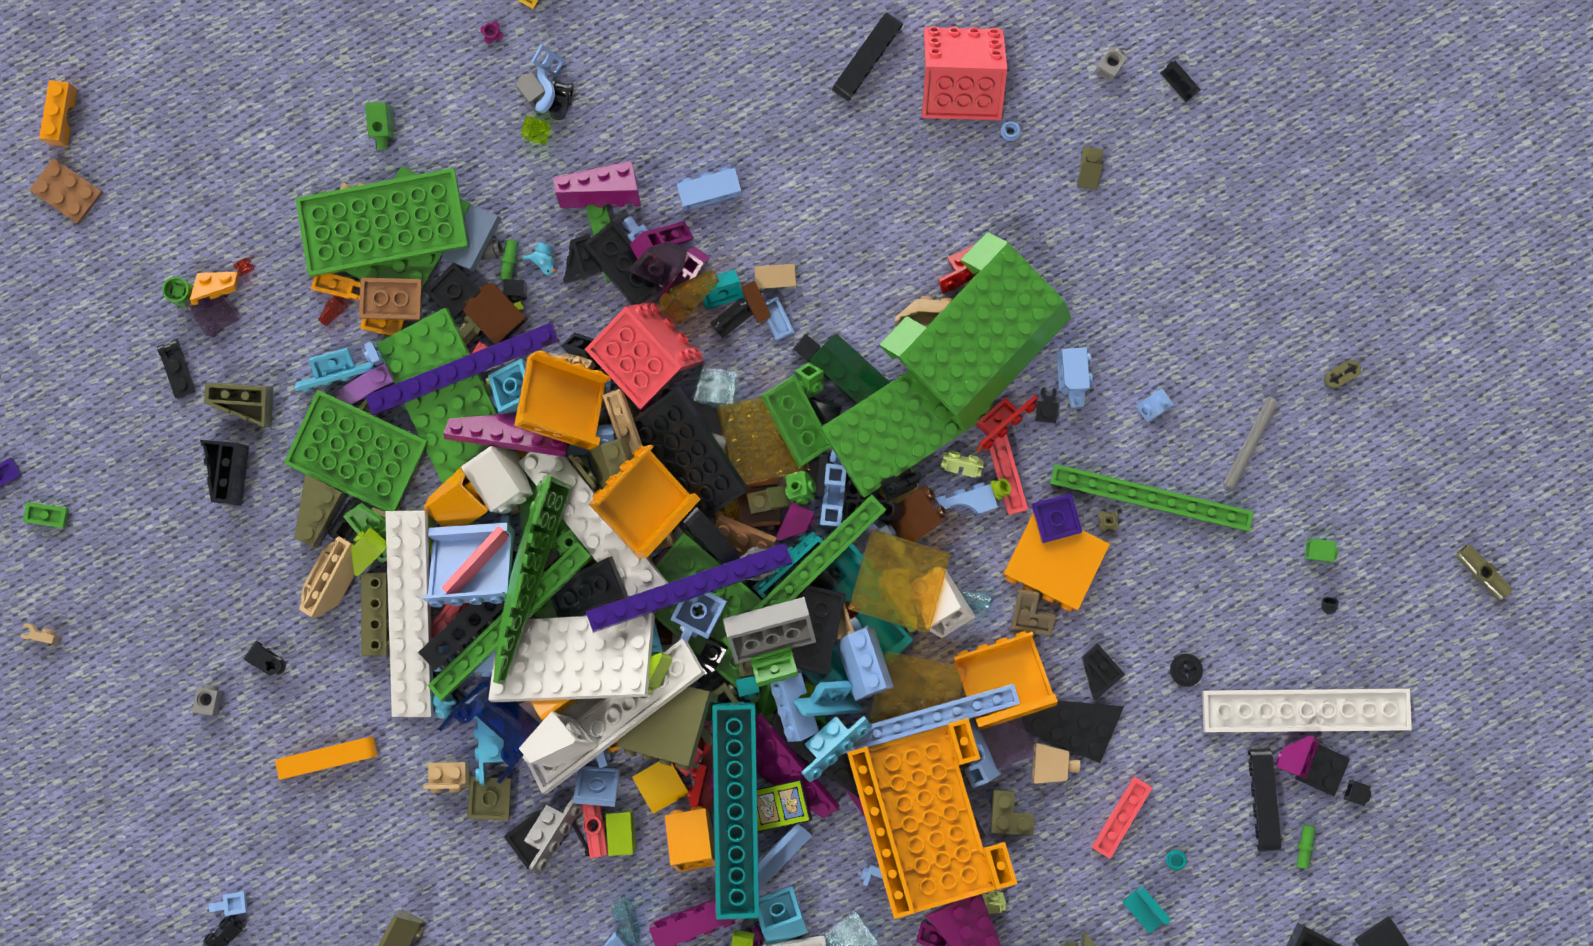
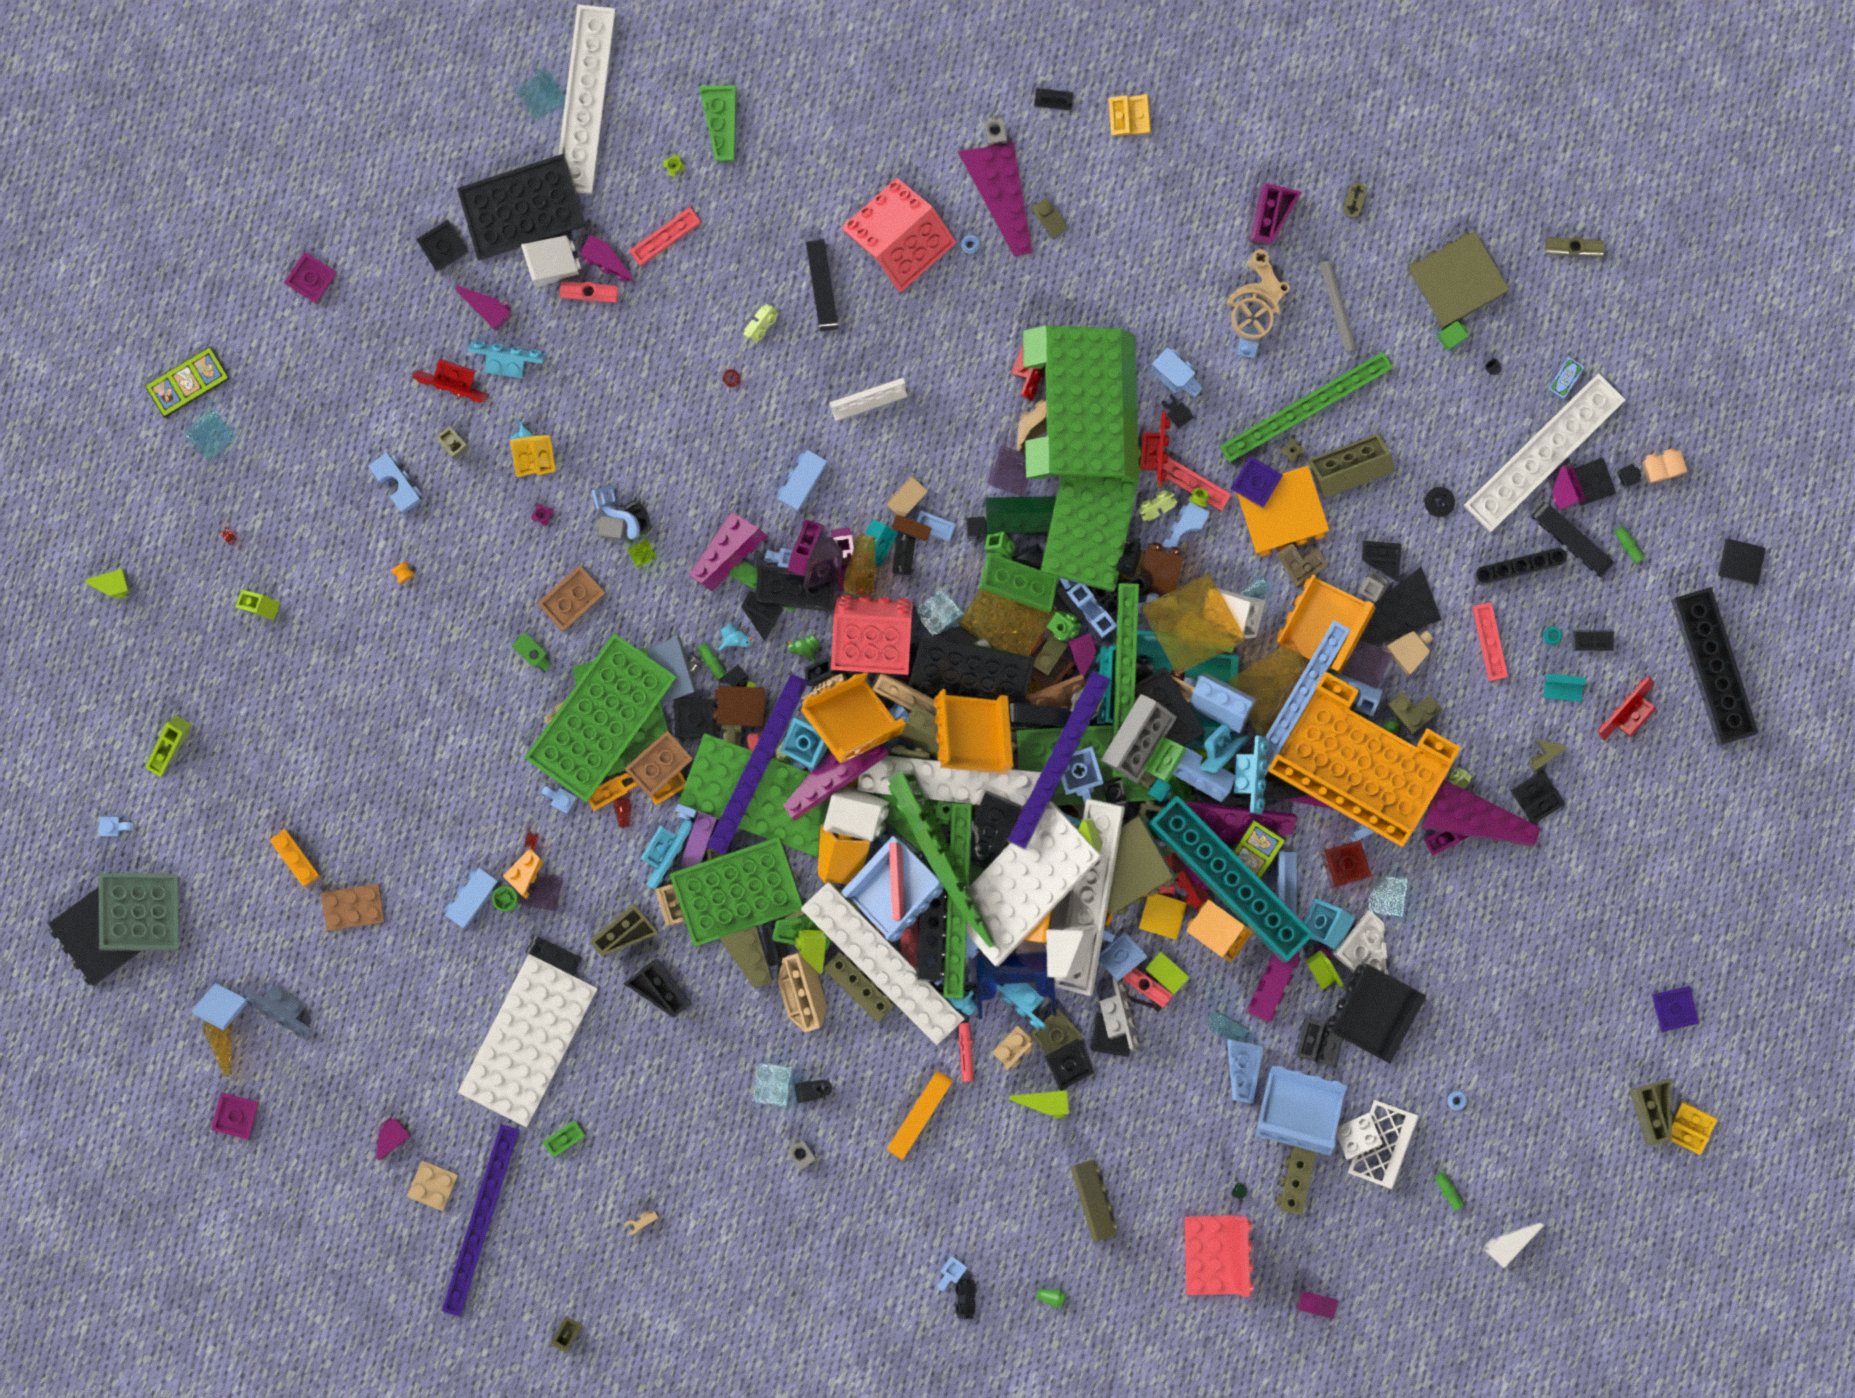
camera: 45 degrees left, 0 degrees up
(93, 415) = (527, 1040): none -> white plate
(156, 267) = (471, 897): none -> light blue brick
(240, 626) = (772, 1084): none -> clear light blue hinge
(294, 414) = (669, 905): none -> tan hinge
(296, 257) = (561, 800): none -> light blue plate
(414, 736) = (966, 1052): none -> coral pin
(430, 843) = (1048, 1103): none -> lime slope
(451, 114) = (571, 598): none -> medium nougat plate
(475, 831) = (1069, 1064): none -> black plate
(589, 317) = (805, 647): none -> bright green animal
(729, 57) = (737, 379): none -> clear red bush
(785, 44) = (756, 330): none -> yellowish green hinge
(818, 173) = (868, 399): none -> white fence
(840, 883) = (1345, 864): none -> clear red slope
(872, 330) = (1009, 472): none -> clear purple bracket
(980, 809) = (1391, 726): none -> bright green plate
(1071, 688) = (1374, 586): none -> light grey brick
(1076, 106) = (998, 182): none -> magenta wing
(1144, 576) = (1351, 465): none -> olive slope
(1206, 895) = (1593, 640): none -> black hinge
(1209, 379) = (1268, 289): none -> tan piece
(1212, 783) = (1528, 561): none -> black beam
(1228, 147) = (1130, 115): none -> yellow slope
(1269, 321) = (1271, 211): none -> magenta wedge
(1367, 510) = (1458, 279): none -> olive panel
(1379, 668) = (1566, 378): none -> light blue tile
(1393, 812) = (1664, 466): none -> light nougat brick

